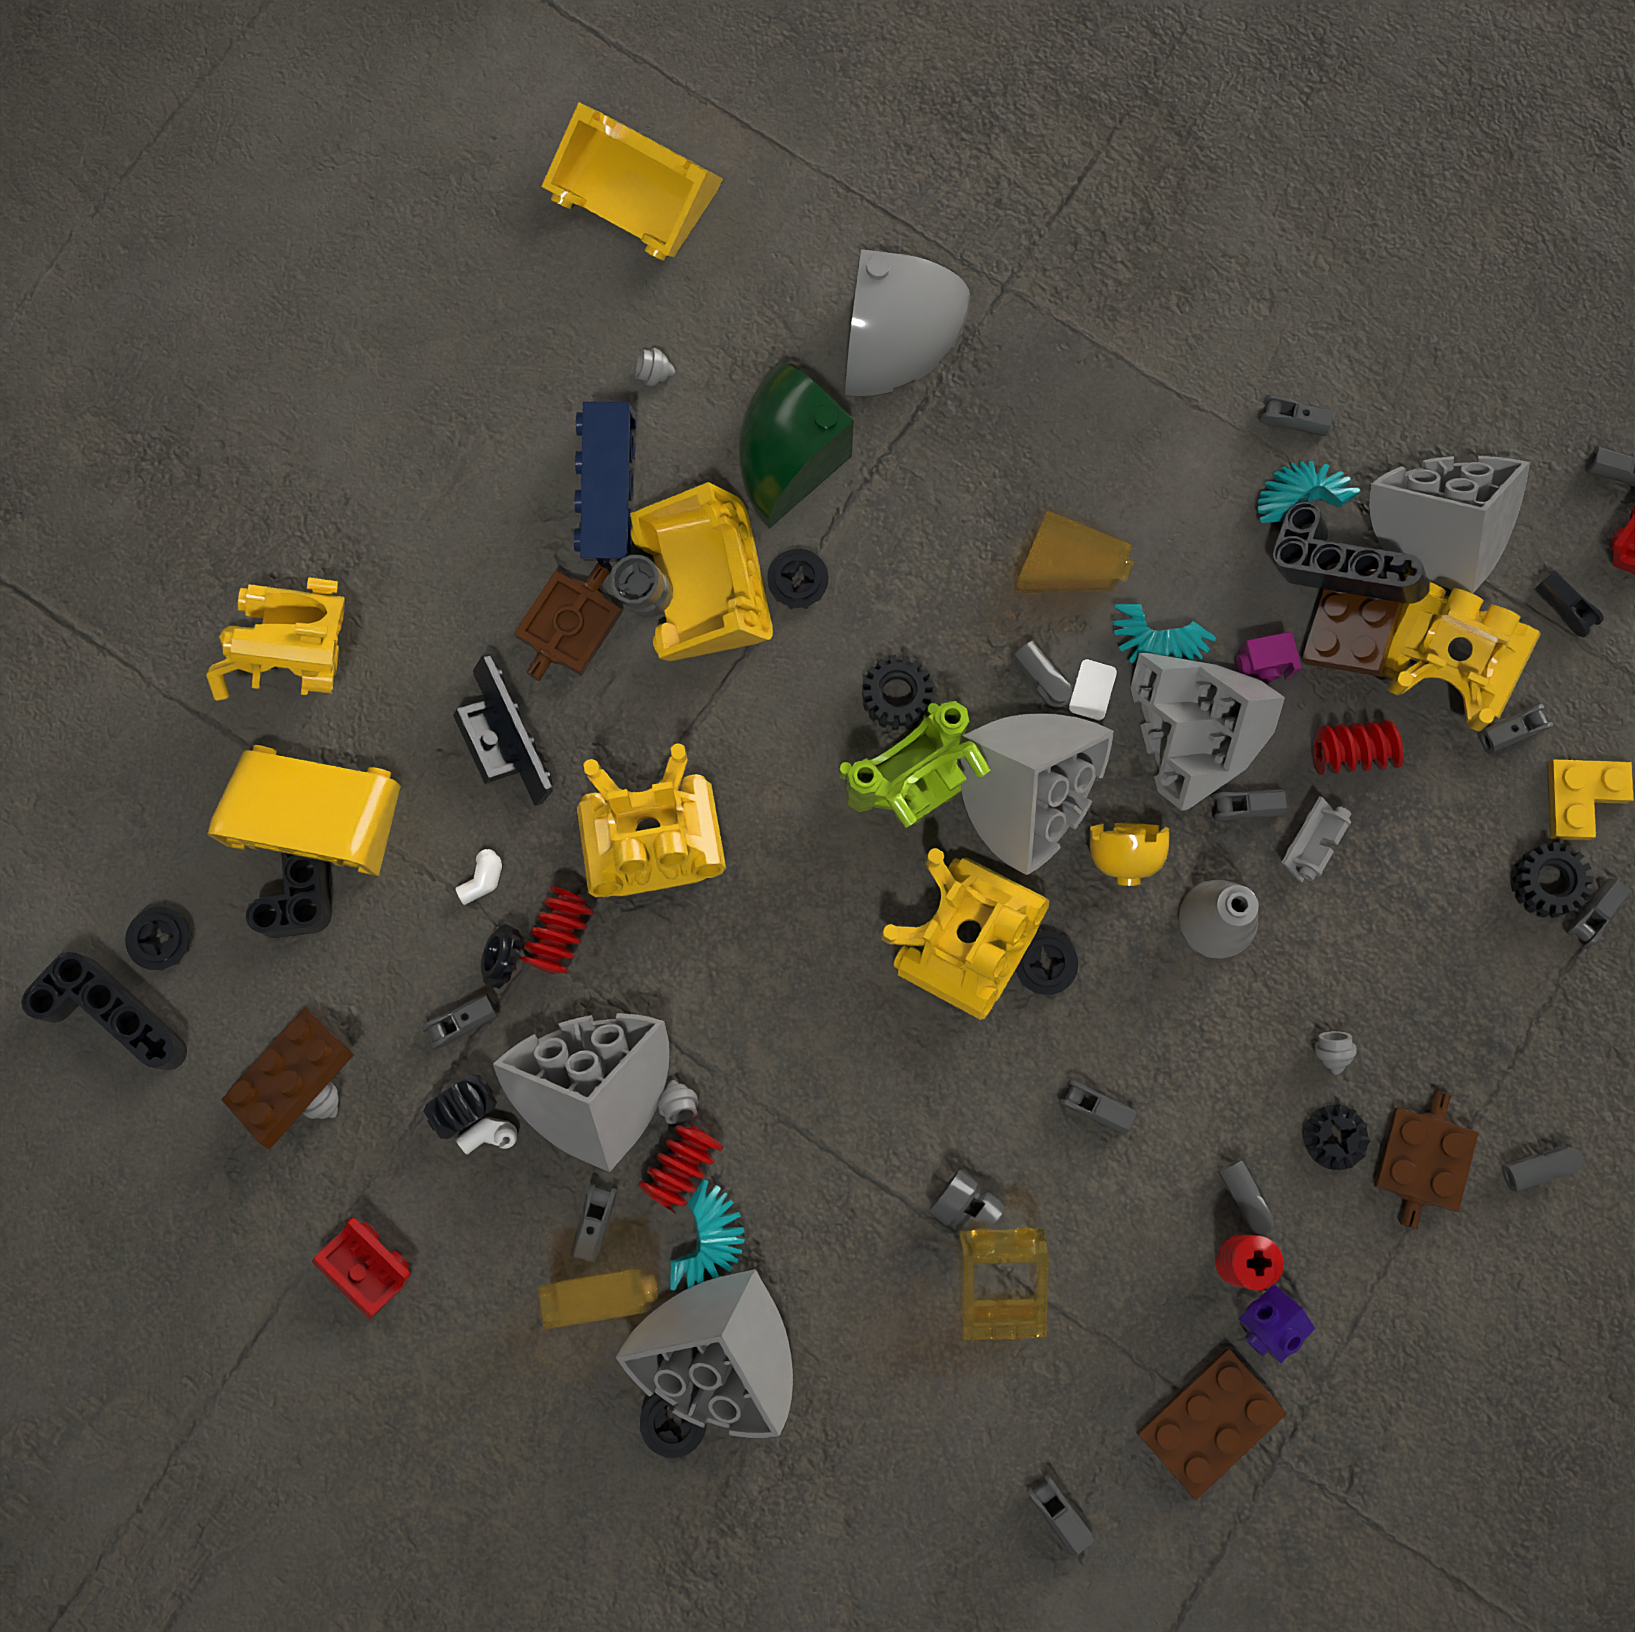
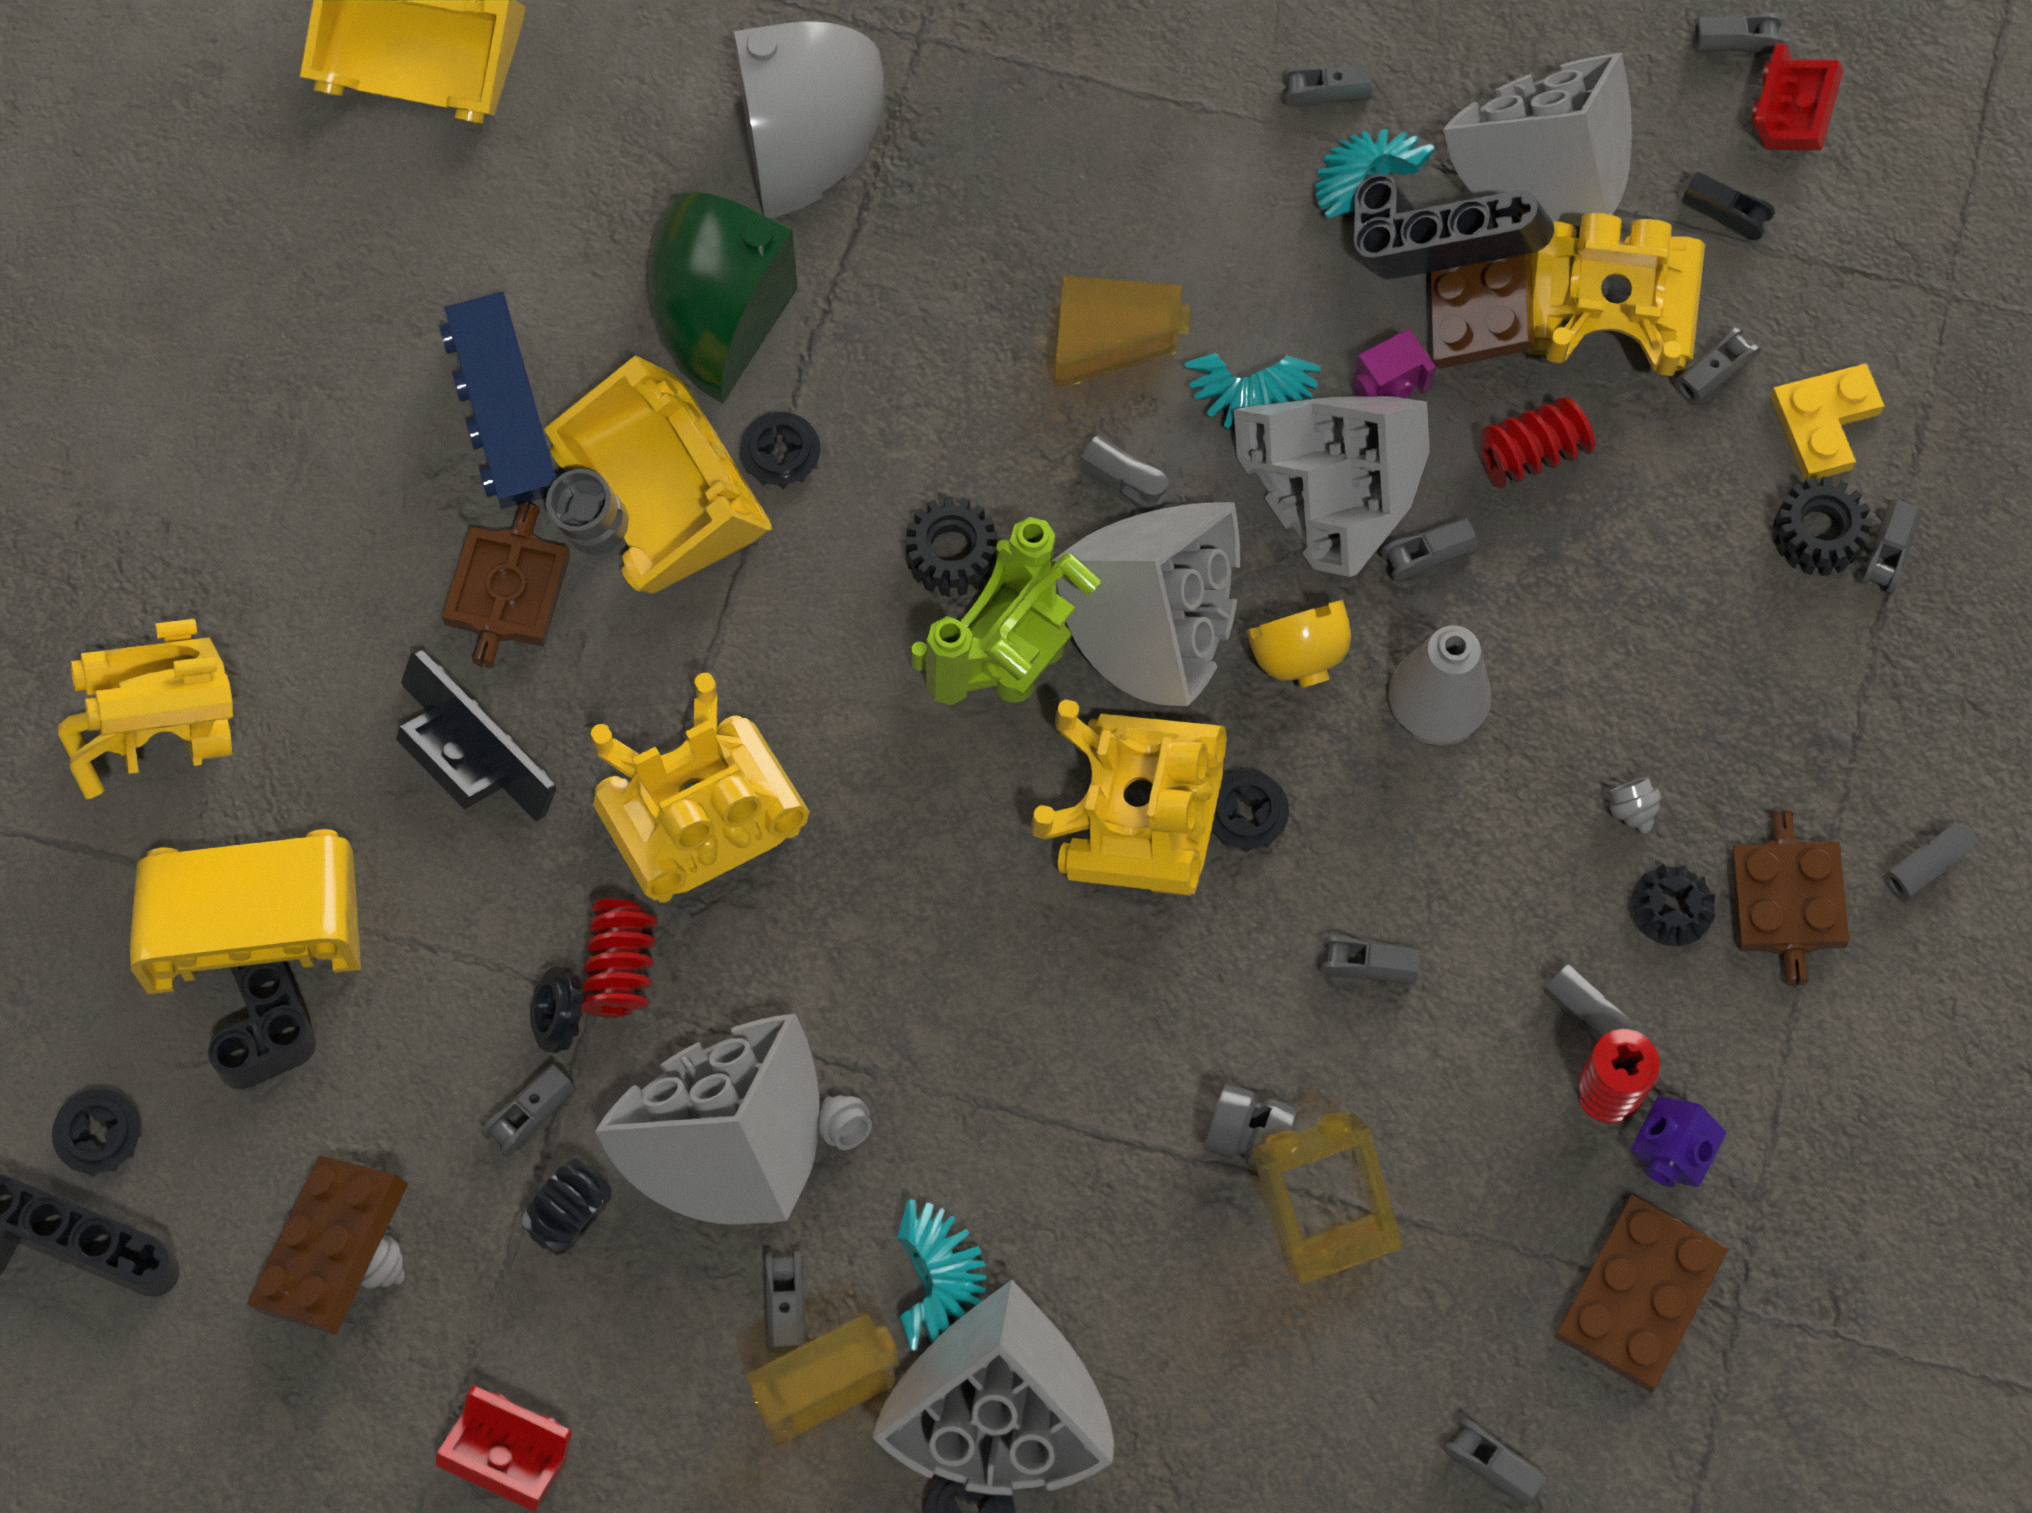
camera: 20 degrees left, 10 degrees down
(485, 877) = (503, 927): white arm -> none
(490, 1131) = (611, 1233): white arm -> none
(653, 367) = (511, 252): light grey plate -> none
(680, 1166) = (870, 1194): red piece -> none
(1092, 689) = (1191, 472): white sticker -> none
(1307, 853) = (1520, 578): light grey hinge -> none

